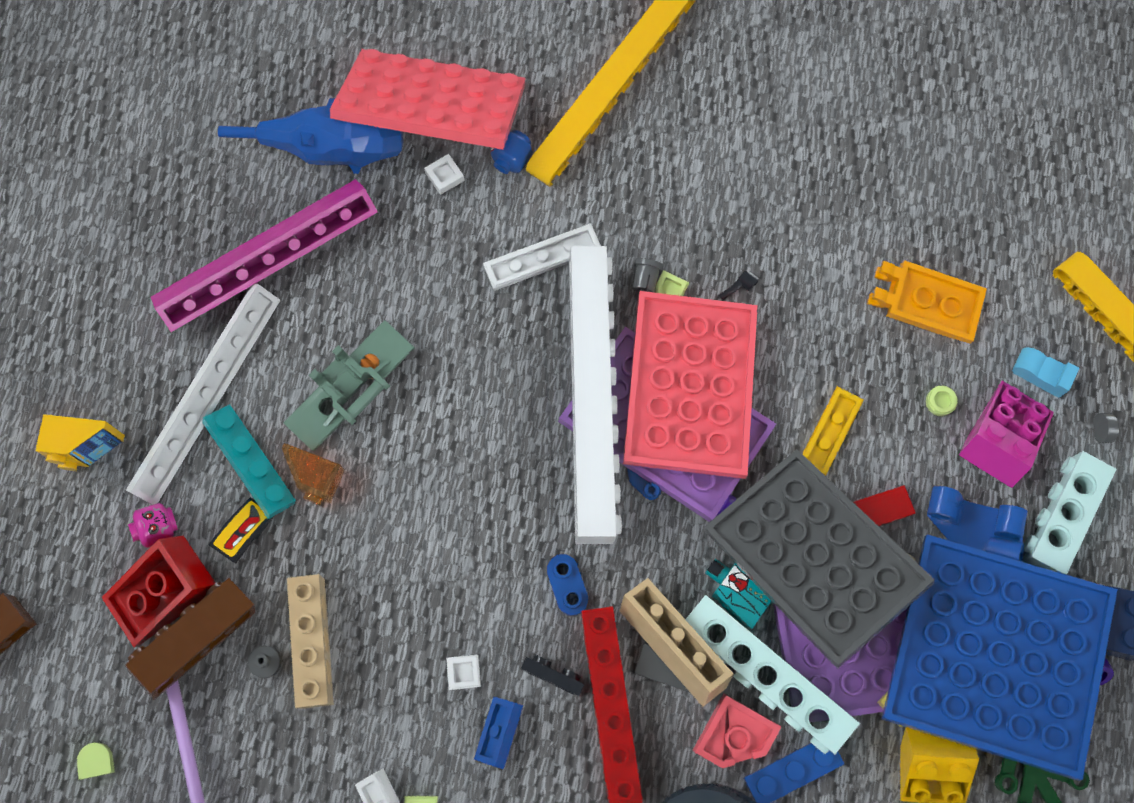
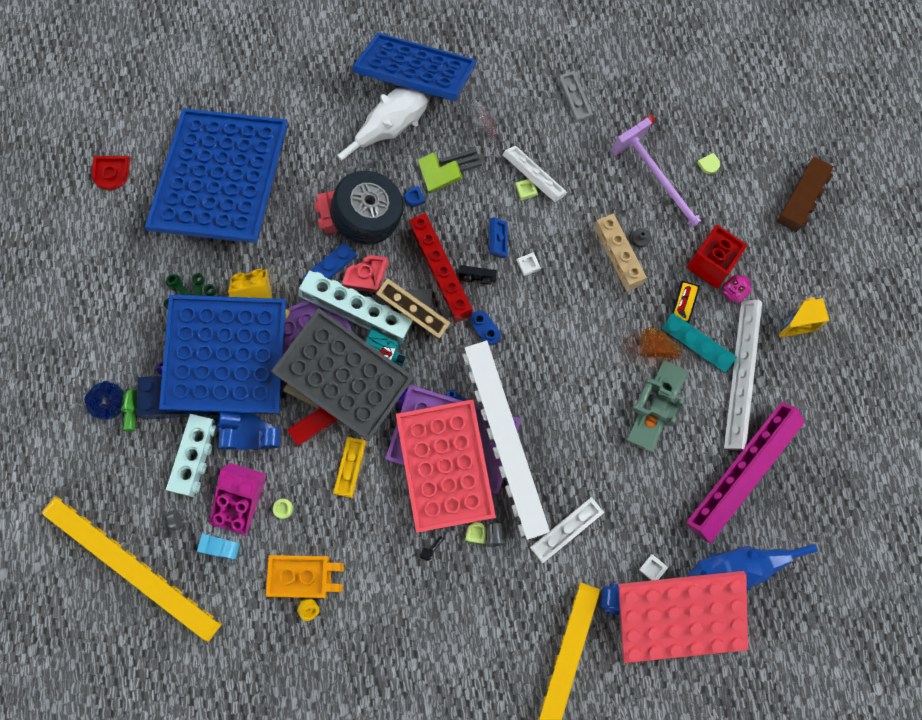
camera: 170 degrees right, 0 degrees up
(190, 638) = (686, 232): reddish brown brick -> none
(930, 255) = (308, 609): none -> yellow tile

